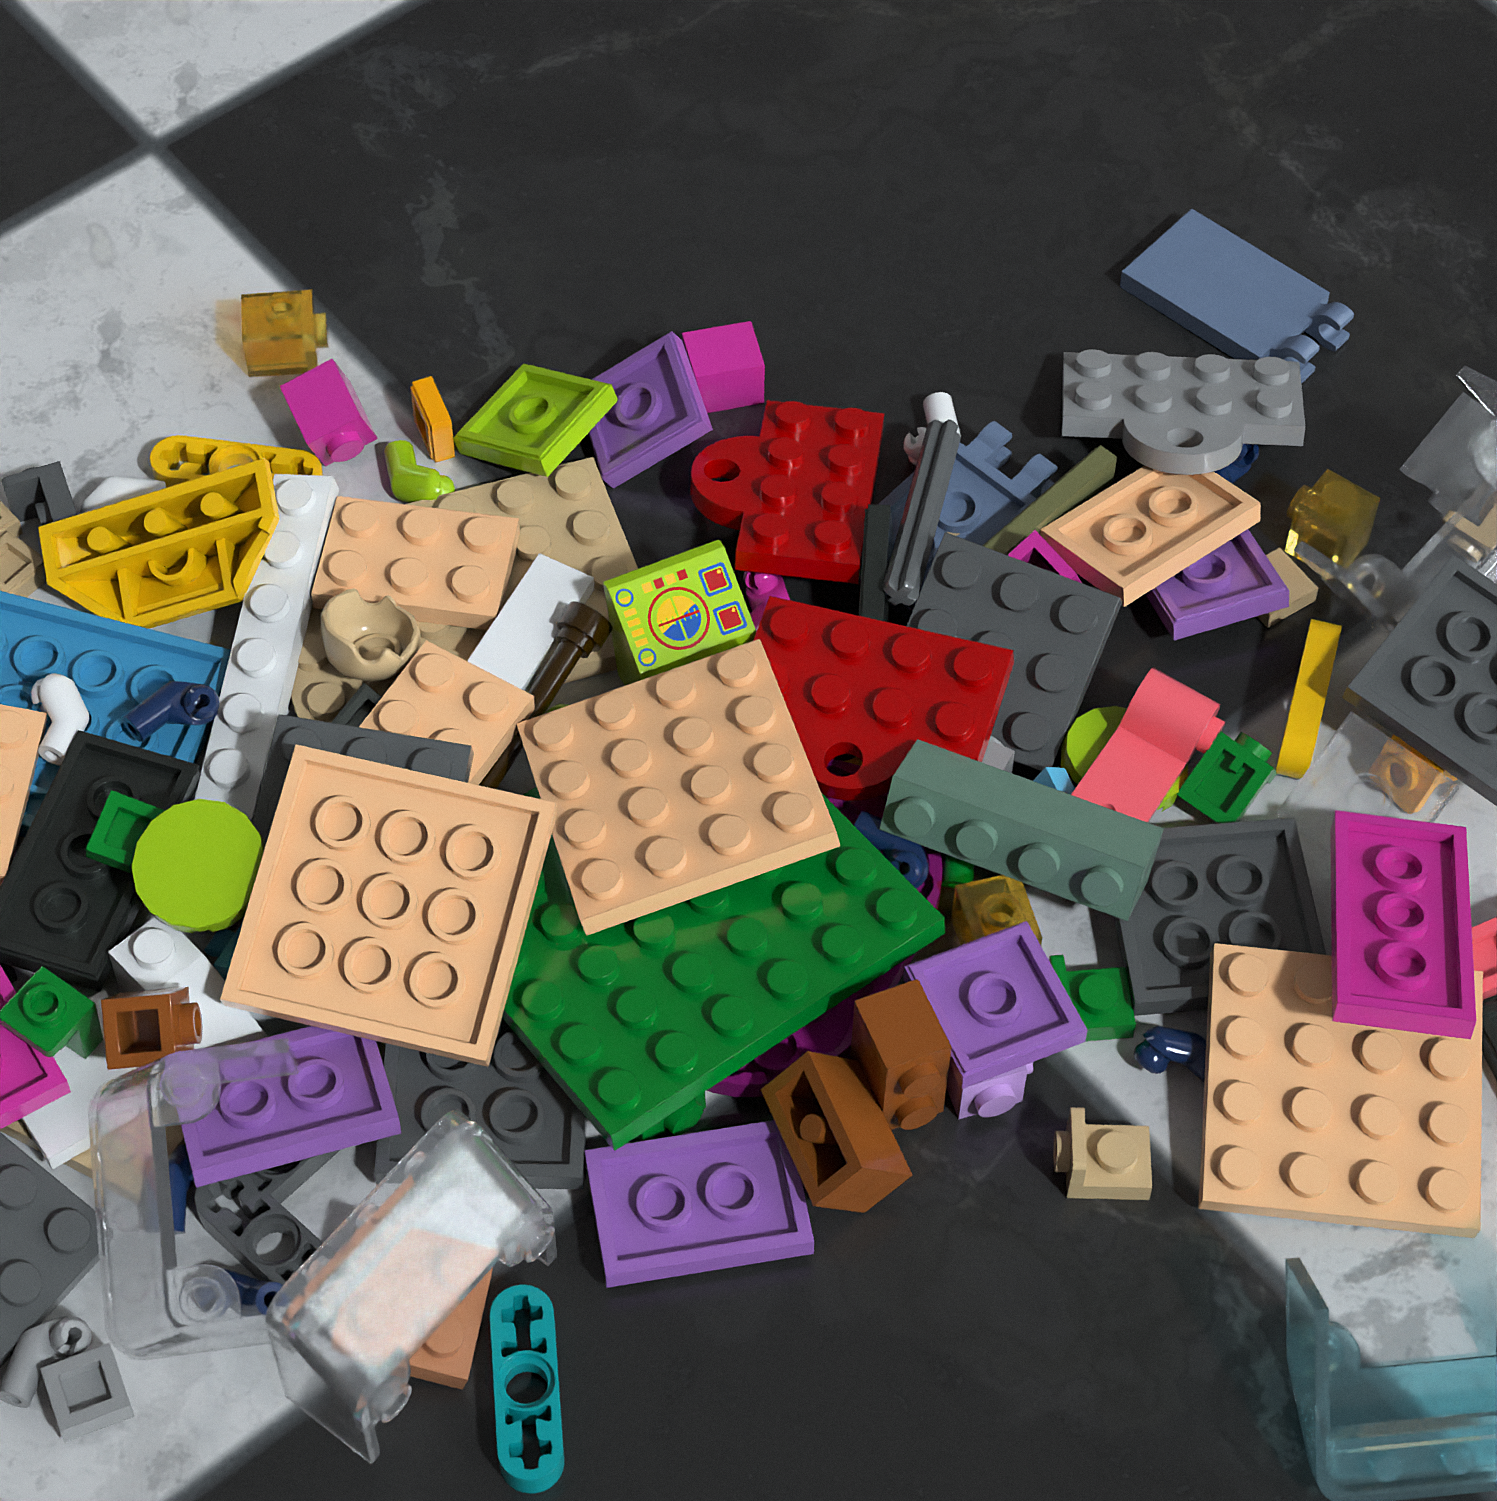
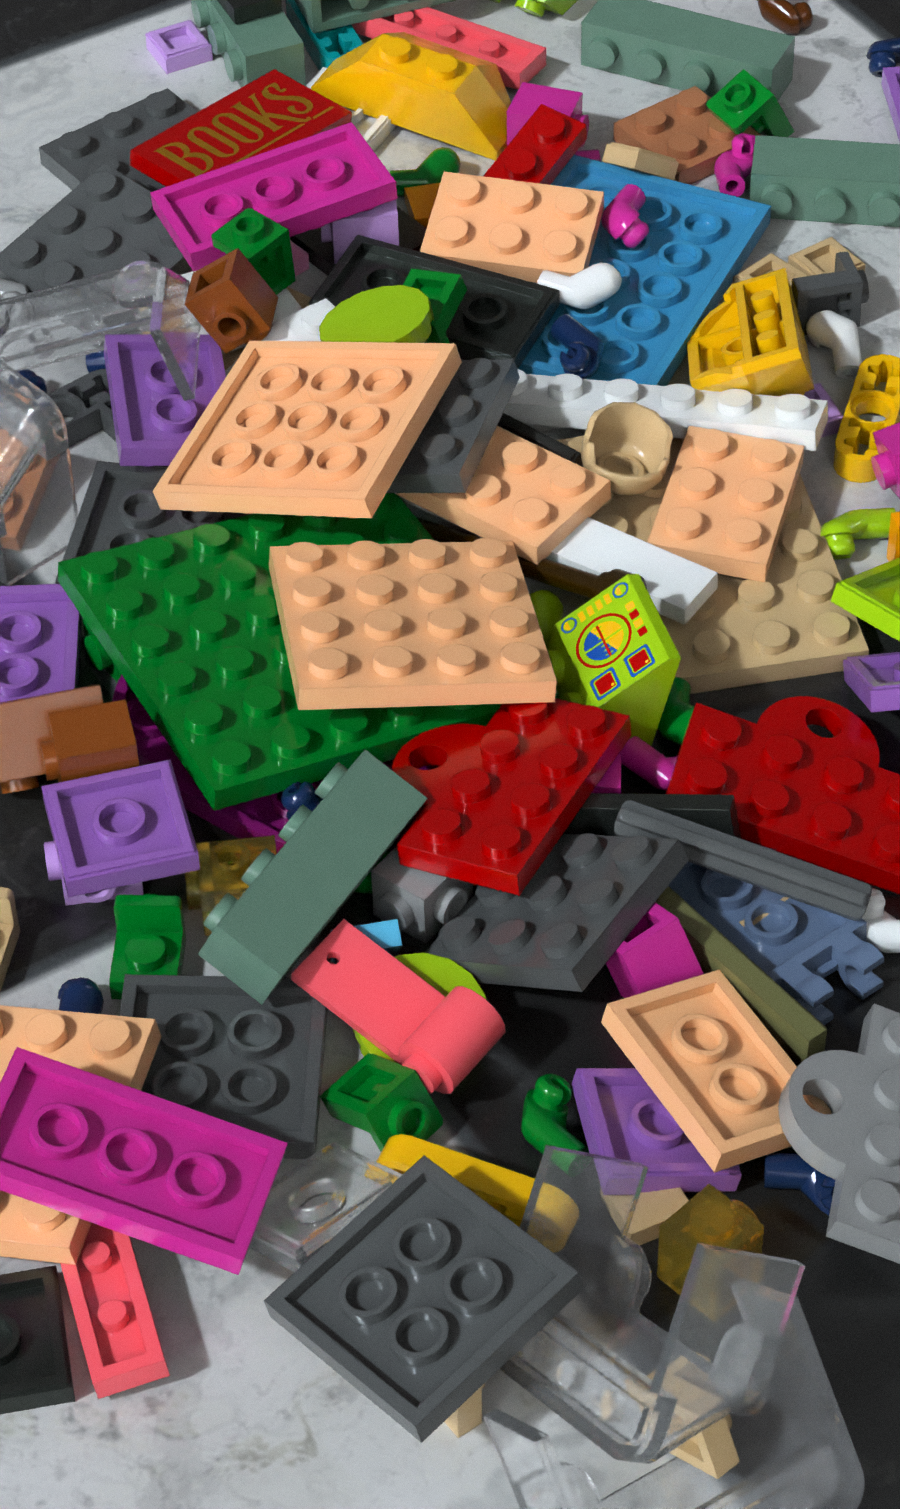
camera: 100 degrees right, 10 degrees down
(1212, 664) = (546, 1115): none -> green arm

